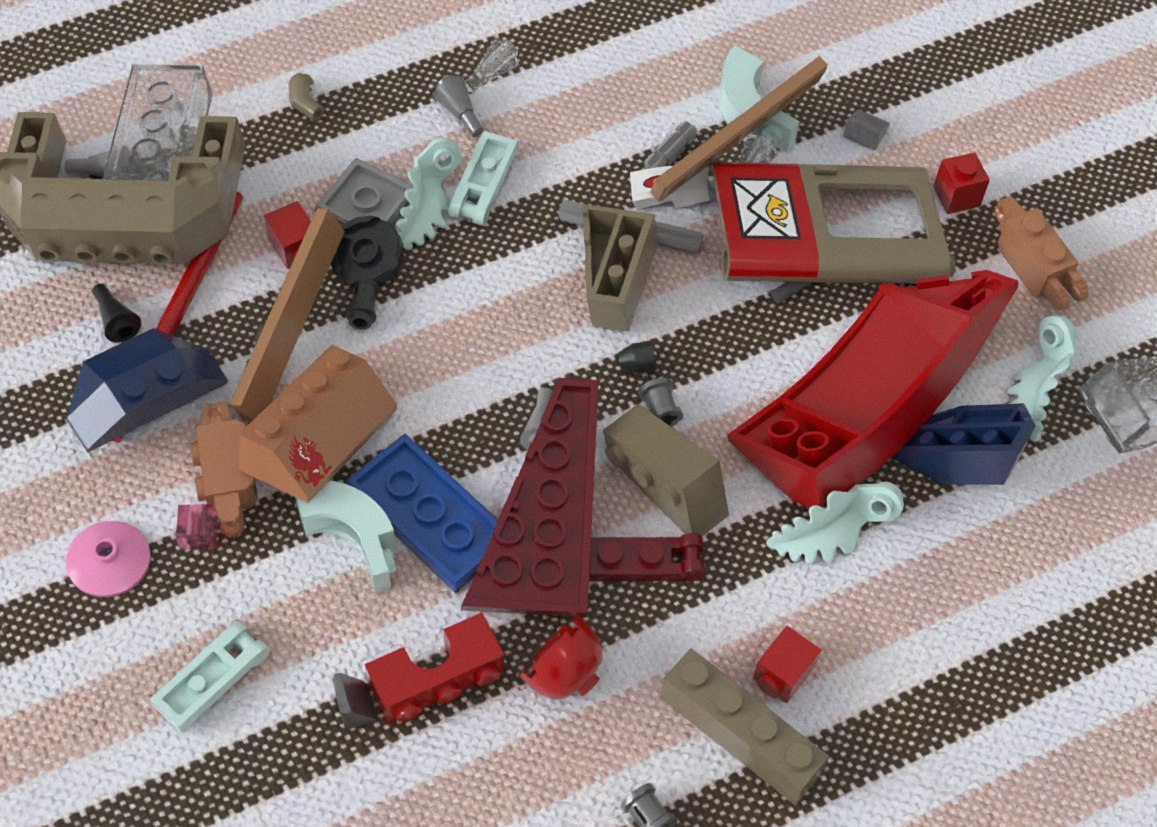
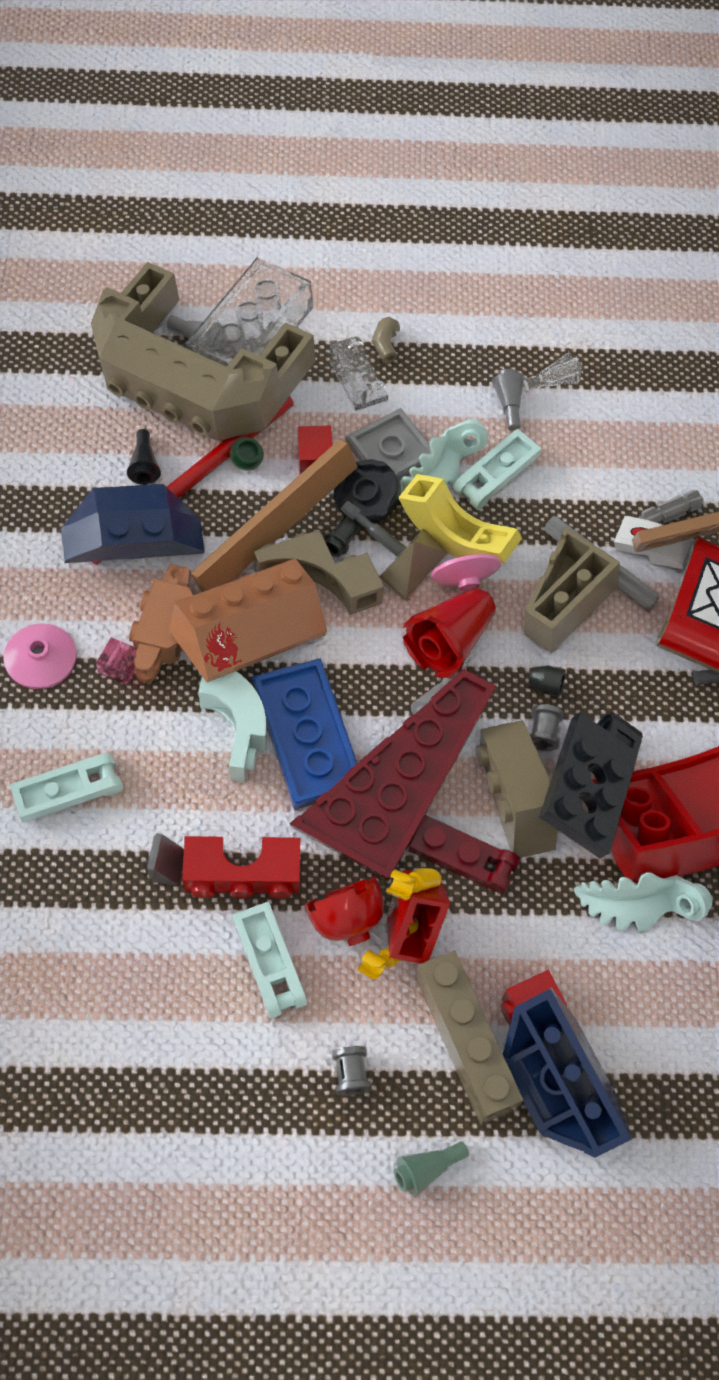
camera: 25 degrees right, 5 degrees up
(221, 265) = (246, 453): none -> dark green plate
(292, 143) = (356, 374): none -> clear hinge
(395, 286) = (374, 530): none -> dark grey piece
(397, 343) = (351, 579): none -> dark tan arch
(449, 304) = (413, 564): none -> dark tan slope
(473, 253) = (459, 533): none -> light yellow arch
(508, 286) = (466, 571): none -> bright pink dish
(510, 746) = (268, 958): none -> light aqua plate
(520, 353) = (448, 631): none -> red cone
(633, 639) = (412, 920): none -> red torso
(737, 428) = (609, 753): none -> black hinge
(851, 720) = (562, 1077): none -> dark blue wedge

